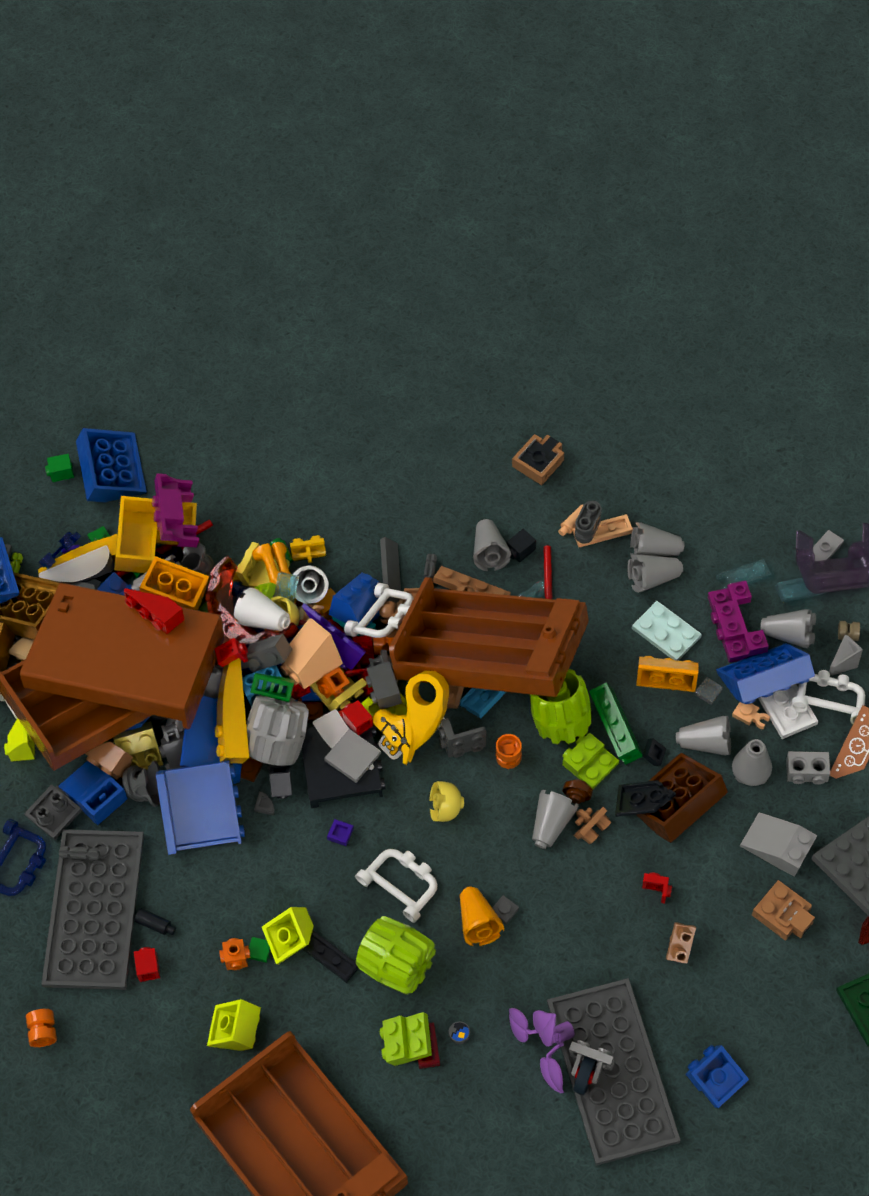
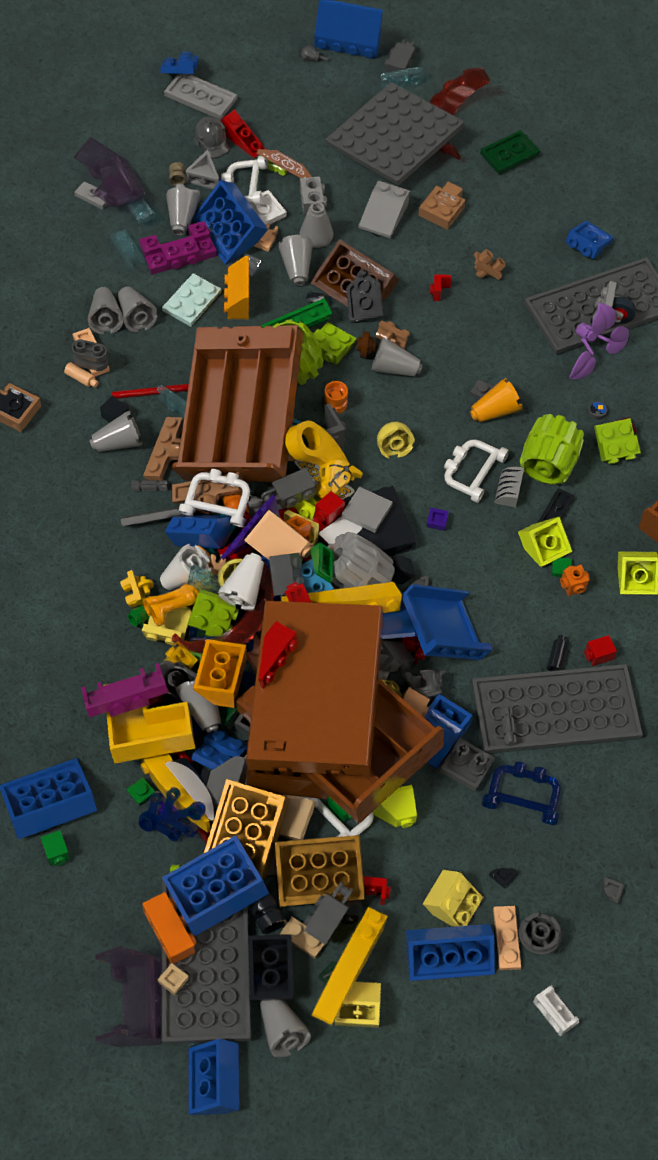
camera: 105 degrees left, 0 degrees up
(364, 912) = (509, 486): none -> light grey brick

